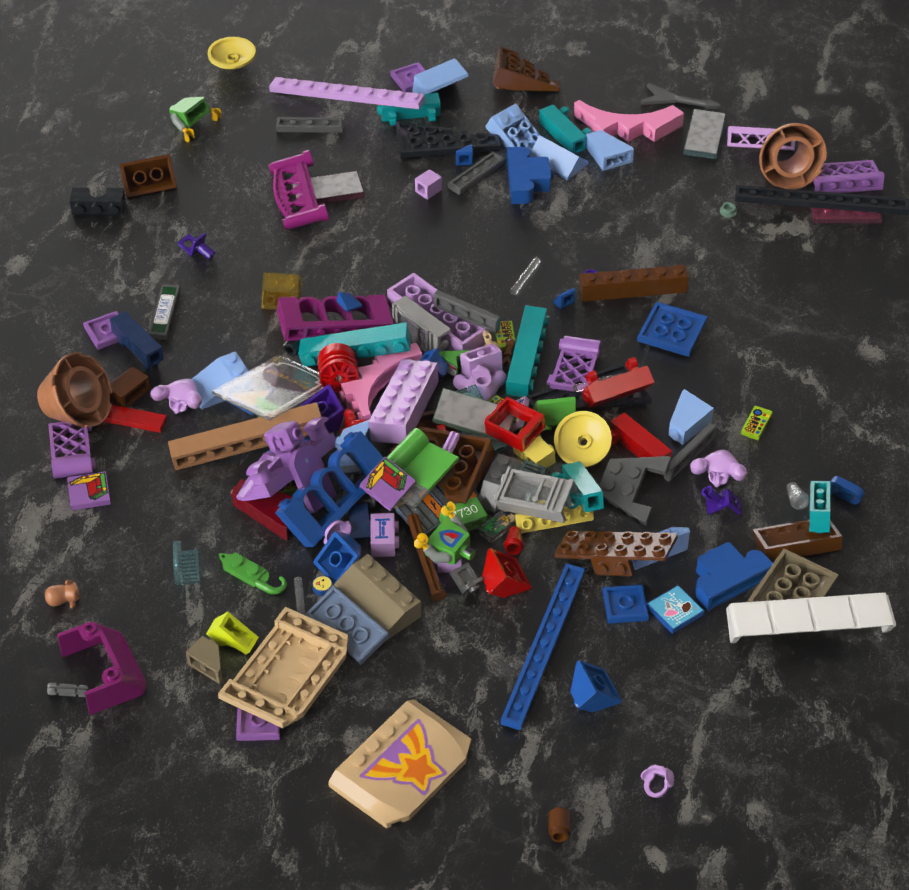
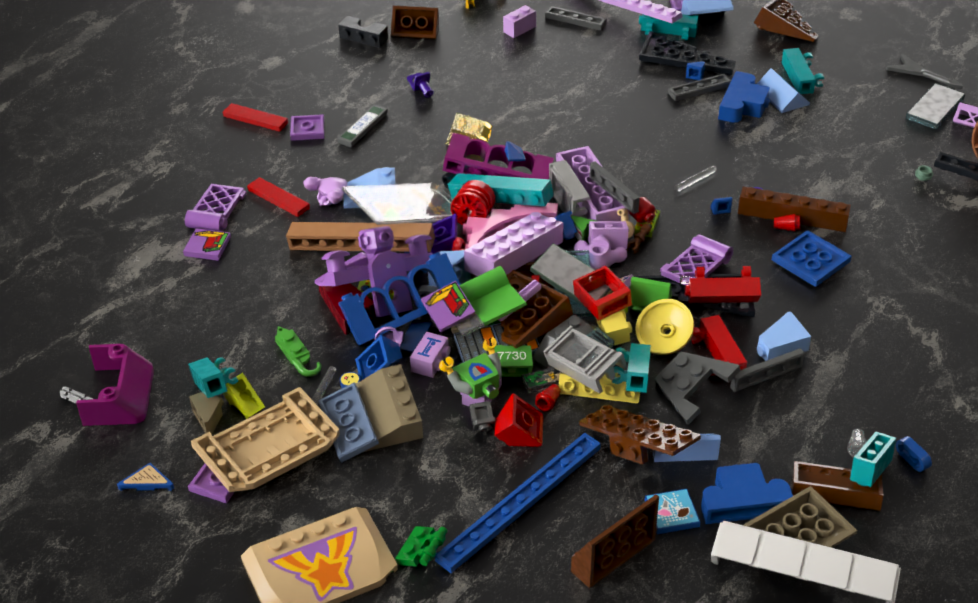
camera: 25 degrees right, 5 degrees down
(43, 334) = (255, 117): none -> red tile
(60, 594) = (124, 317): nougat animal -> none
(76, 391) = (253, 154): nougat cone -> none
(129, 387) = (291, 173): reddish brown brick -> none
(136, 340) = (319, 138): dark blue brick -> none
(185, 565) = (243, 326): clear light blue panel -> none
(192, 743) = (146, 479): none -> tile
(196, 626) = (210, 377): none -> teal brick
(257, 145) = (519, 21): none -> lavender brick
(311, 210) = (535, 78): magenta piece -> none
(336, 187) = (560, 68): flat silver tile -> none
(428, 184) = (649, 84): lavender brick -> none
(437, 592) = (452, 399): reddish brown axle -> none
(478, 714) = (421, 546): none -> green plate
(505, 328) = (646, 211): none -> red head
(513, 128) = (751, 57): light blue slope -> none
(527, 351) = (658, 239): teal brick -> none
(593, 688) = (543, 557): blue slope -> none
(608, 150) = (832, 96): light blue slope -> none
(625, 604) = (624, 489): blue tile -> none
(630, 126) = (862, 83): bright pink arch -> none
(634, 298) = (788, 222): none -> red cone
(648, 653) = (616, 544): none -> reddish brown slope
(718, 501) = (773, 423): dark purple bracket -> none
(720, 467) = (789, 391): lavender head -> none
(756, 423) = (852, 364): lime tile -> none

